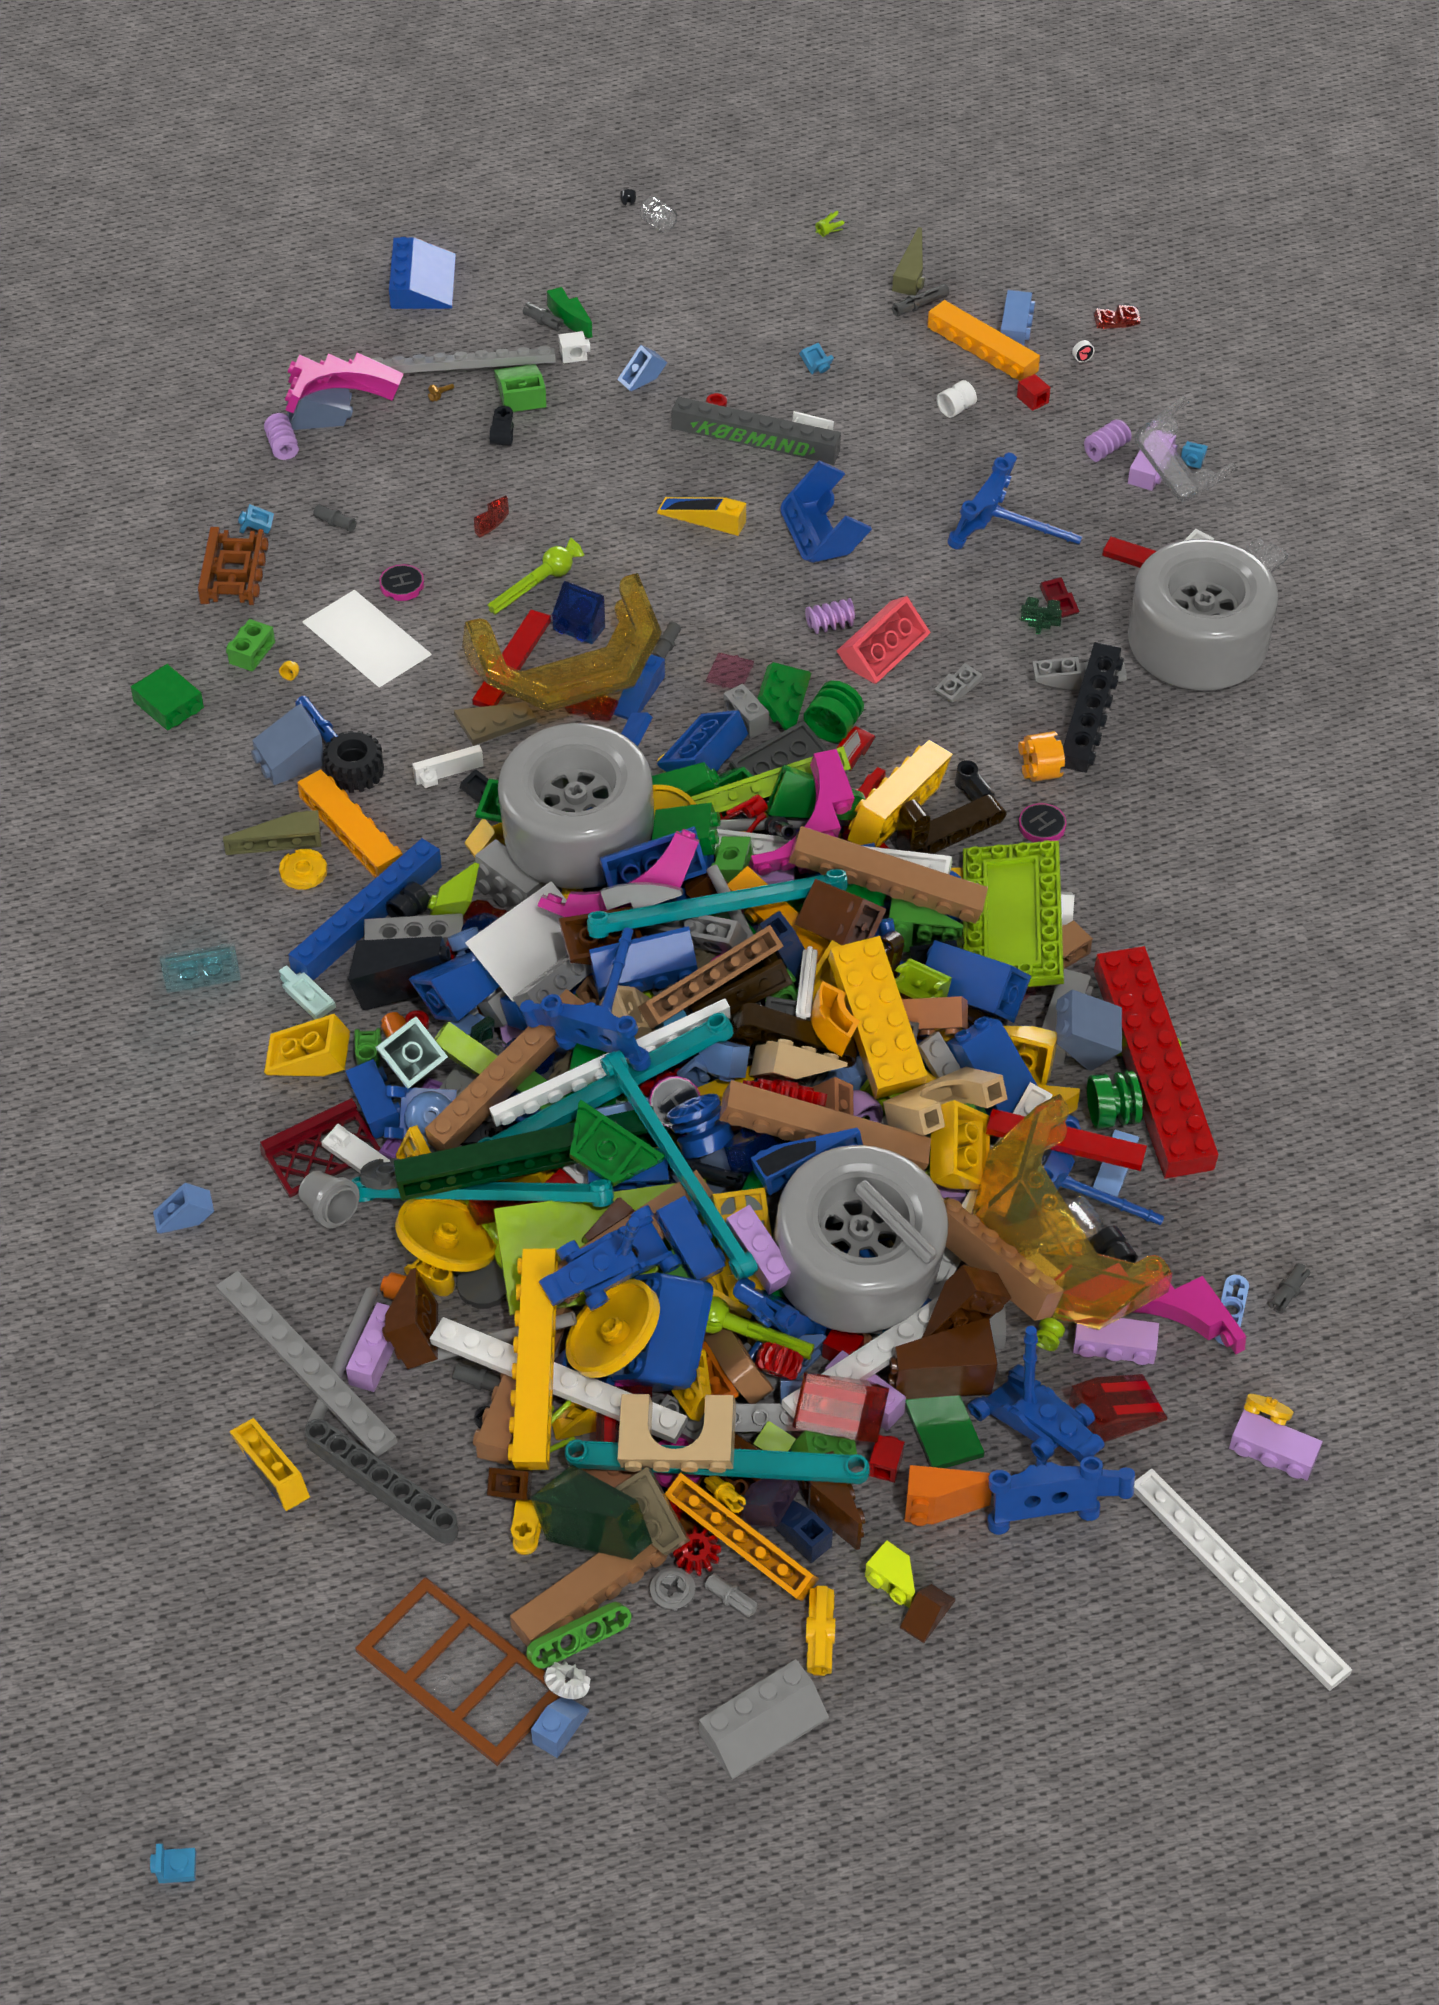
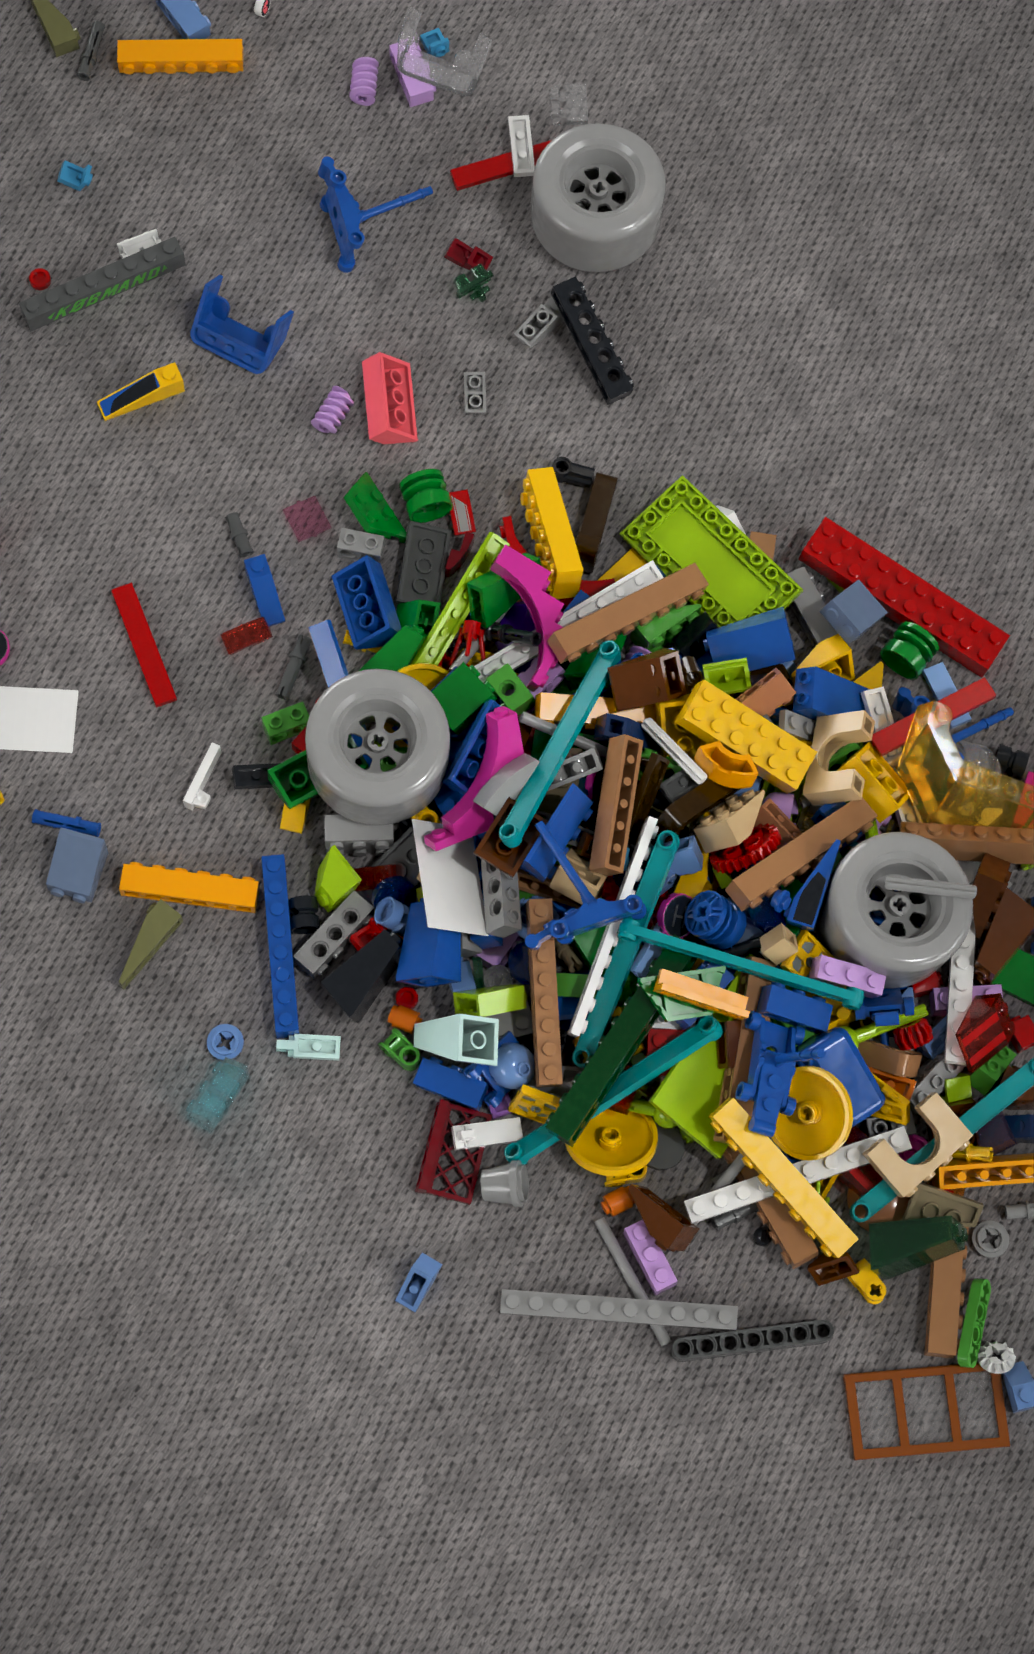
camera: 50 degrees left, 20 degrees up
(245, 935) = (229, 1032): none -> medium blue gear
(271, 1464) = (672, 1396): yellow slope -> none
(305, 875) = (192, 959): yellow tile -> none
(309, 1048) = (362, 1088): yellow slope -> none
(354, 747) = (135, 817): black tyre -> none
(379, 1174) = (527, 1133): dark grey tile -> none
(494, 721) = (189, 709): dark tan wing -> none
(556, 562) = (86, 532): lime piece -> none
(578, 676) = (220, 617): clear yellow windscreen -> none
(579, 613) = (157, 566): clear blue slope -> none
(618, 1155) = (701, 994): none -> light orange fence
(706, 1555) = (990, 1201): red gear -> none
(727, 1177) = (778, 944): none -> tan brick
(761, 1138) = (781, 900): none -> blue plate
(956, 399) = (218, 131): white wheel -> none
(1033, 392) = (265, 76): red brick -> none
(1042, 756) = (600, 411): light orange brick -> none
(1042, 823) = (645, 464): black tile -> none

